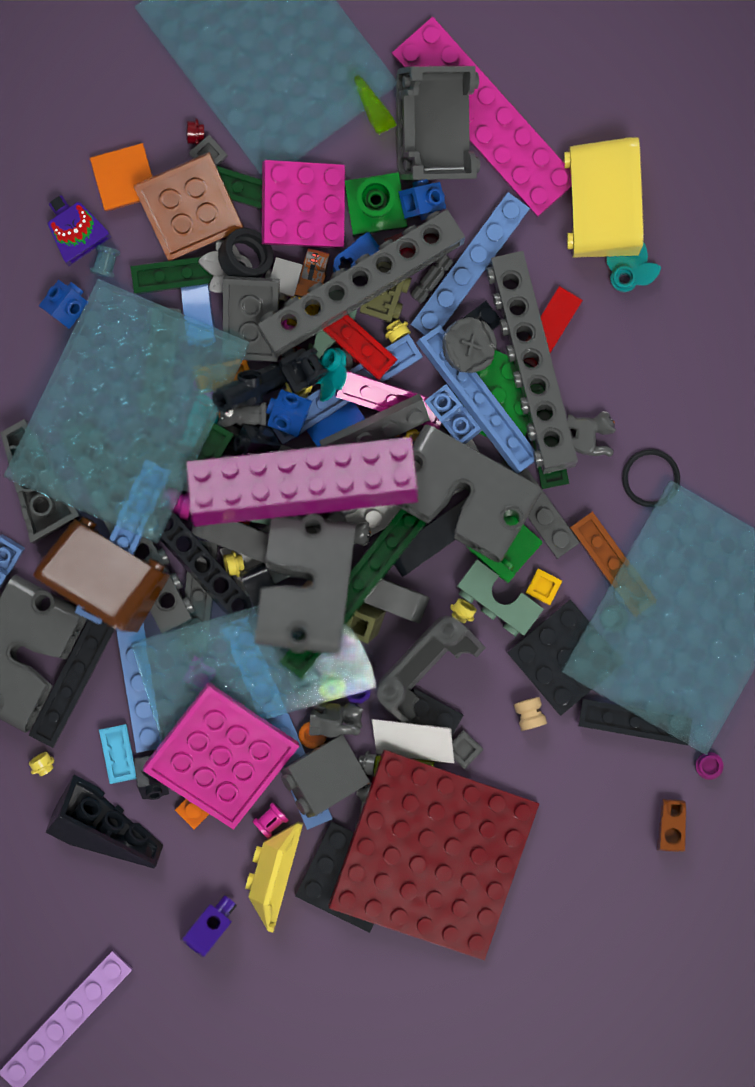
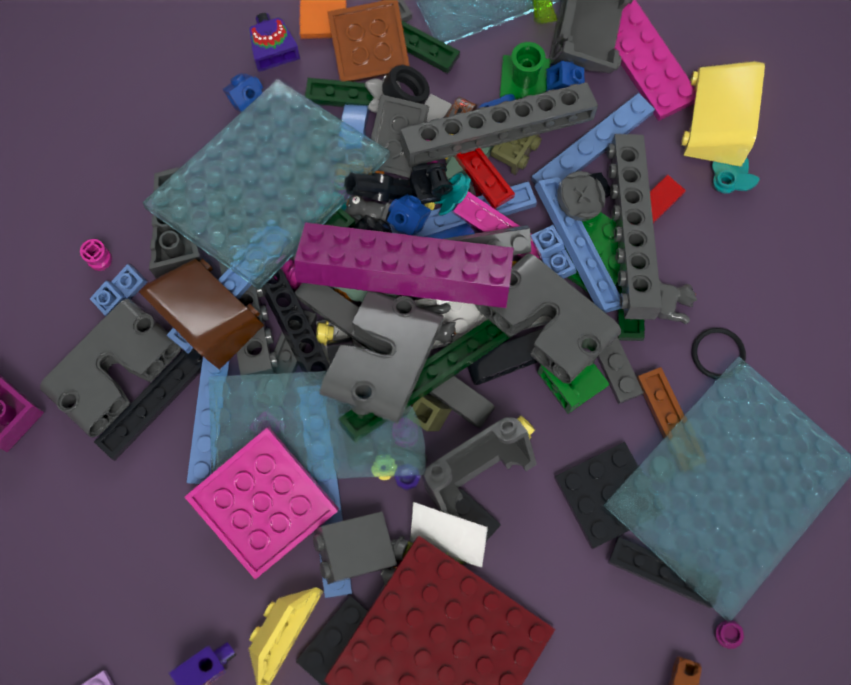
camera: 15 degrees right, 15 degrees down
(41, 764) = (97, 472): light yellow plate -> none
(94, 824) = (127, 541): black wedge -> none
(105, 261) = (288, 70): clear light blue bush -> none
(118, 753) = (170, 480): medium azure plate -> none
(147, 785) = (188, 517): black bracket -> none
(191, 813) = (221, 554): orange plate -> none
(270, 820) = (283, 579): dark pink bush -> none
(303, 204) = (464, 62): dark pink plate -> none
(308, 740) = (354, 507): orange tile -> none
(329, 719) = (378, 496): dark grey animal -> none
(396, 331) = (518, 176): light yellow plate -> none
(431, 279) = (558, 145): dark grey axle -> none
(465, 749) = (495, 558): dark grey tile -> none
(478, 586) = (572, 442): sand green arch -> none
(530, 713) = (565, 539): tan wheel -> none
(543, 586) = (601, 425): yellow tile -> none

